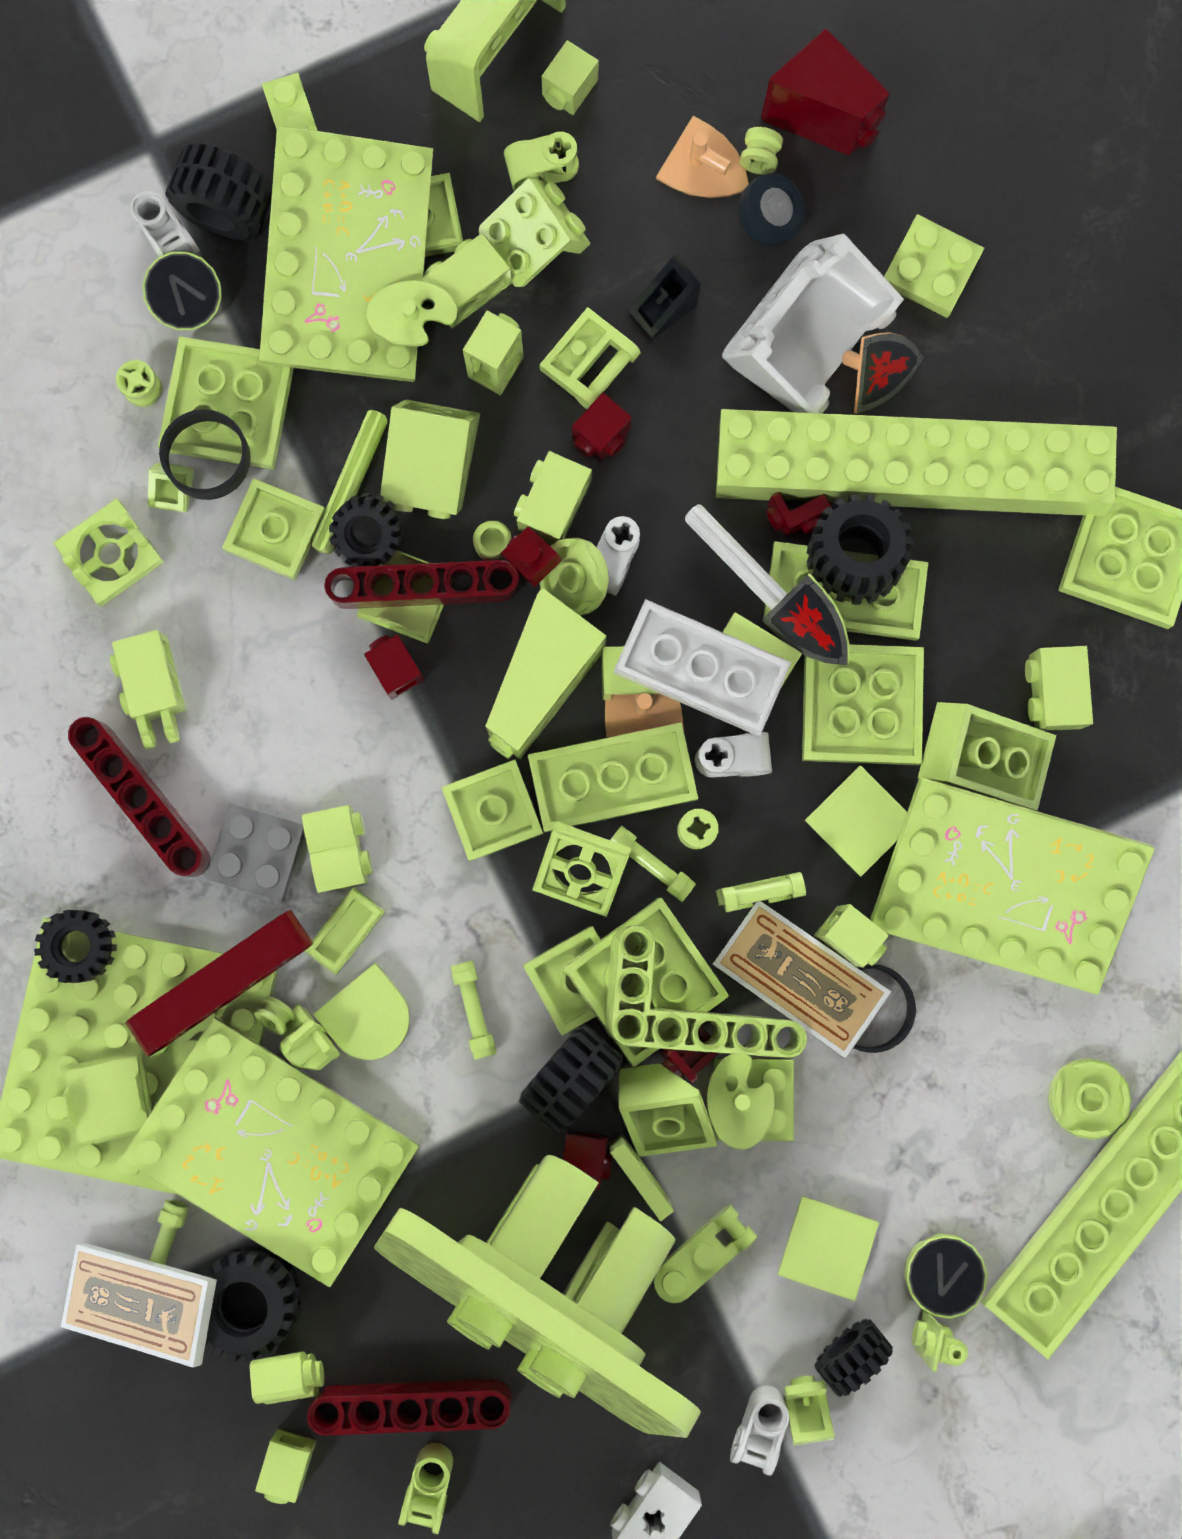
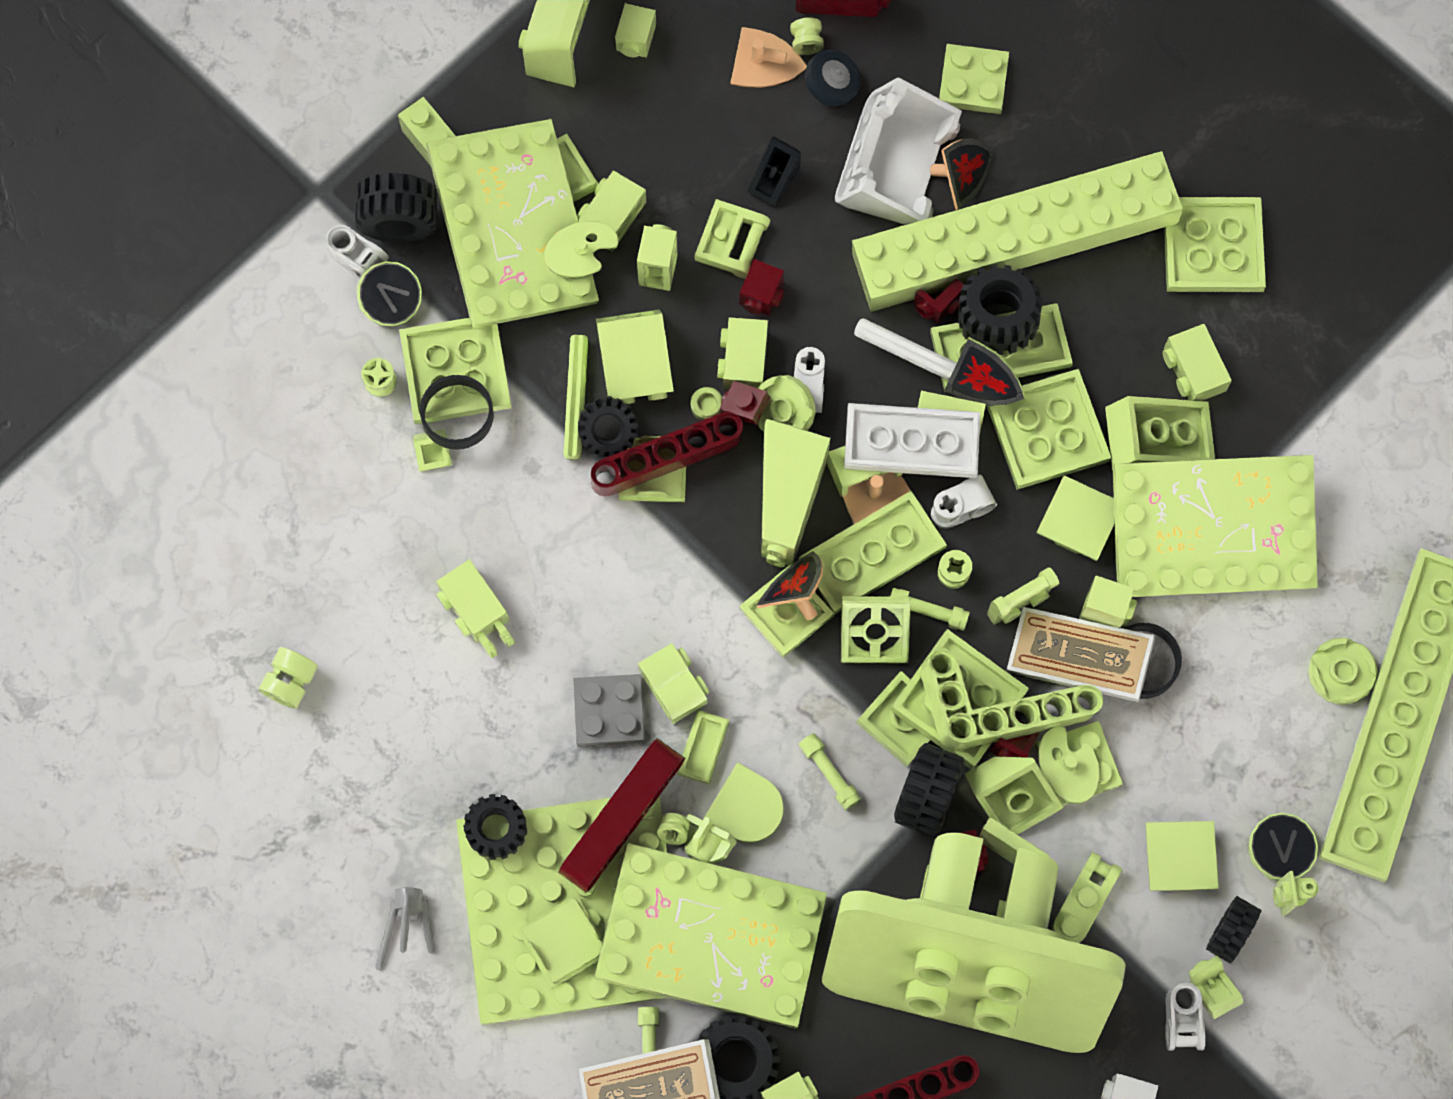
camera: 15 degrees left, 10 degrees down
(71, 542) = (398, 485): yellowish green piece -> none
(124, 785) = (488, 686): dark red beam -> none
(273, 529) = (530, 453): yellowish green plate -> none
(393, 665) = (666, 525): dark red brick -> none
(508, 789) = (796, 585): none -> shield
(533, 229) = (650, 154): yellowish green bracket -> none
(540, 159) = (636, 102): yellowish green piece -> none

